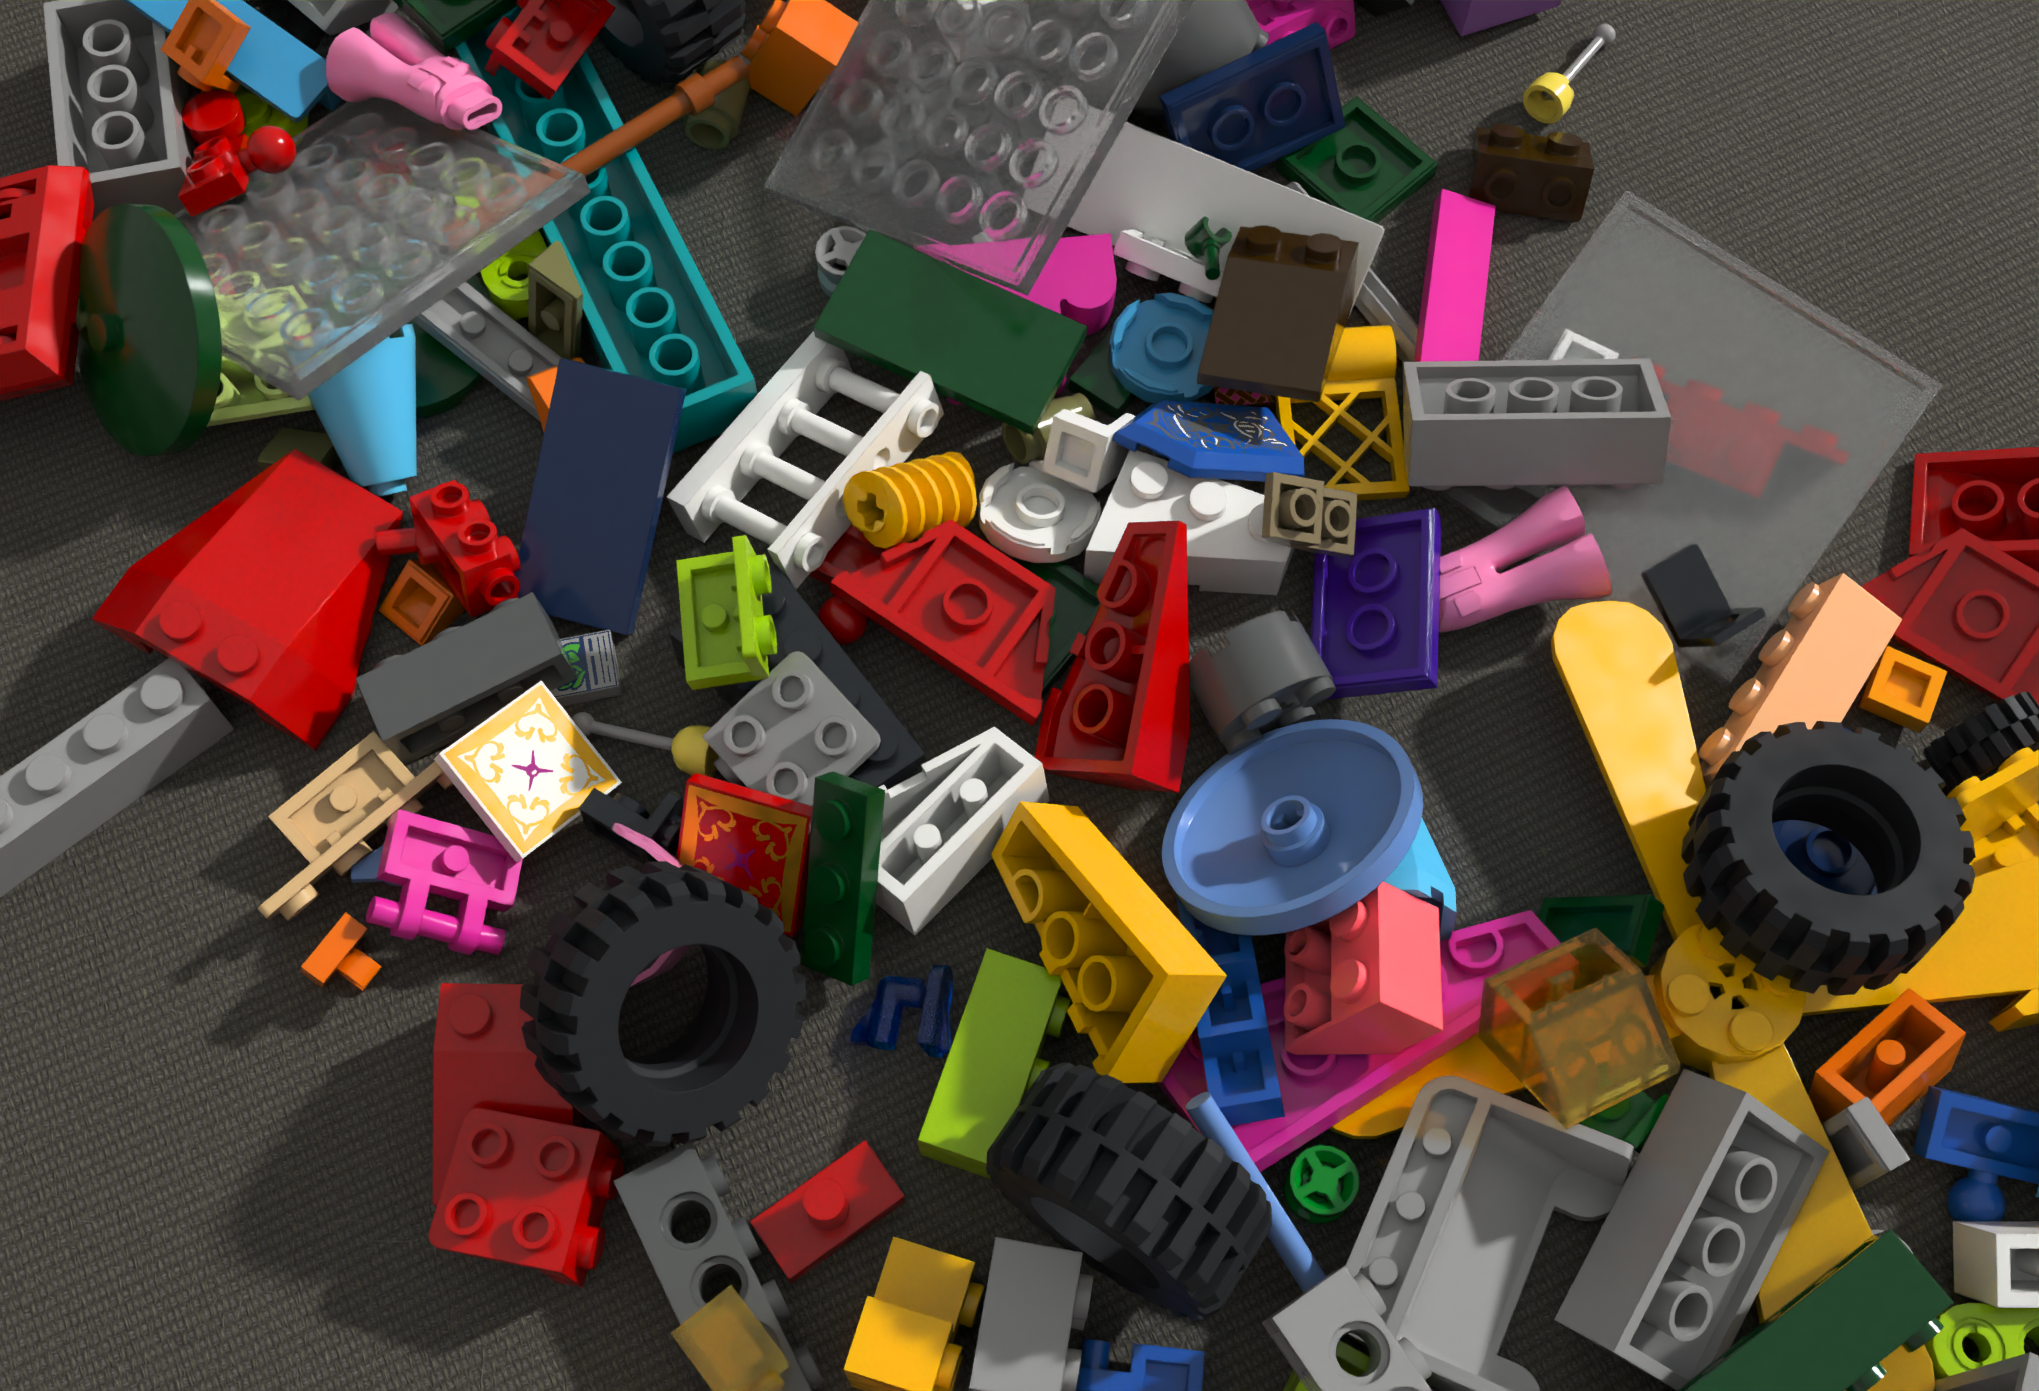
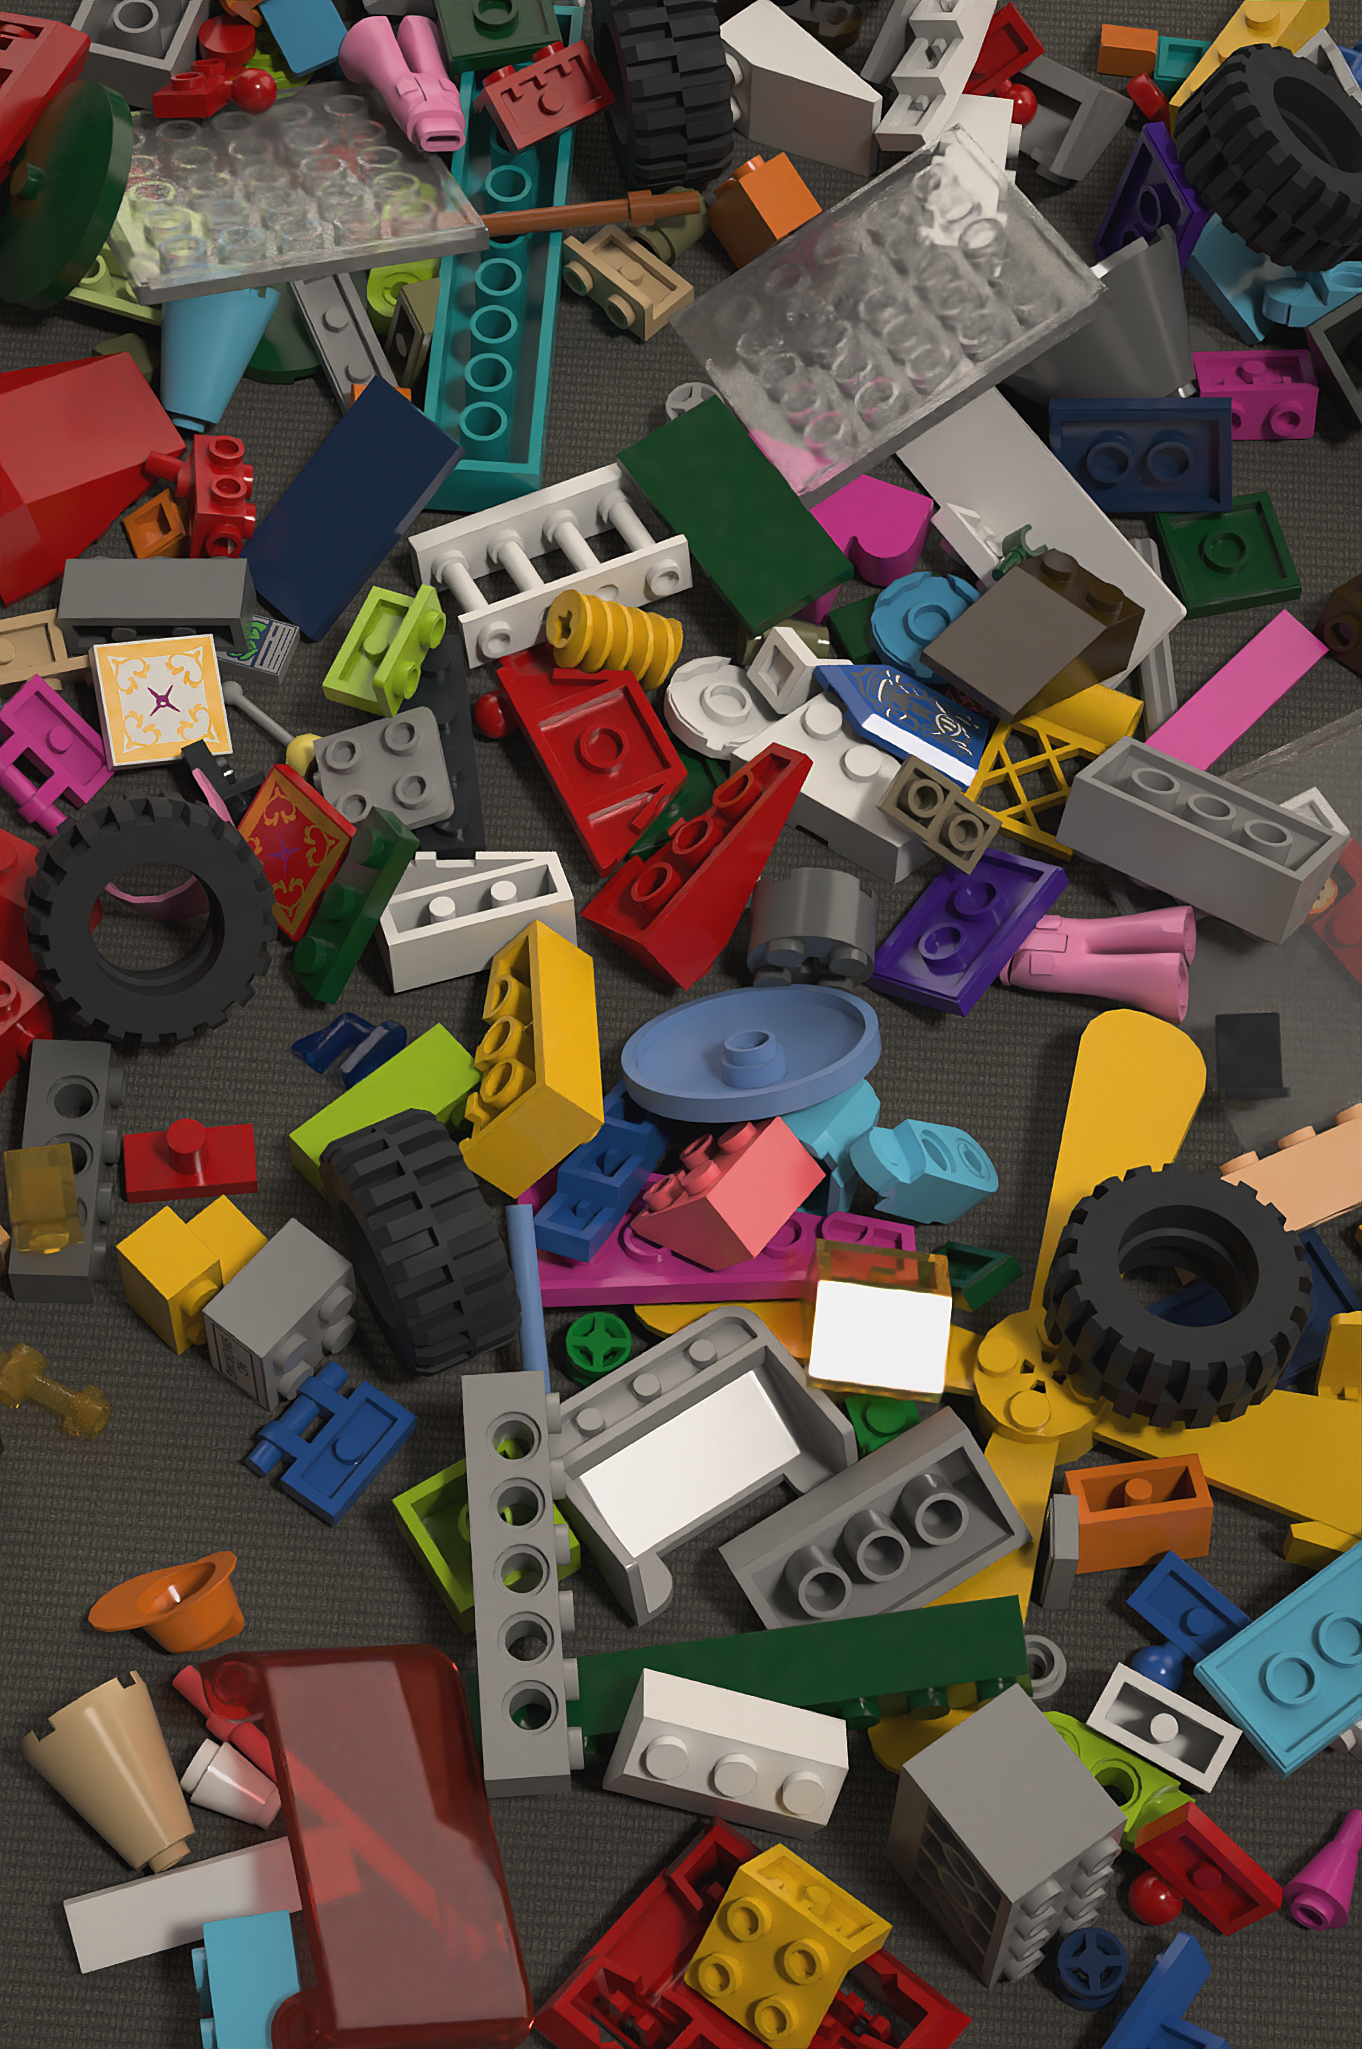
camera: 30 degrees right, 5 degrees down
(709, 168) = (625, 280): none -> tan bracket
(1502, 849) = (924, 1170): none -> medium azure piece

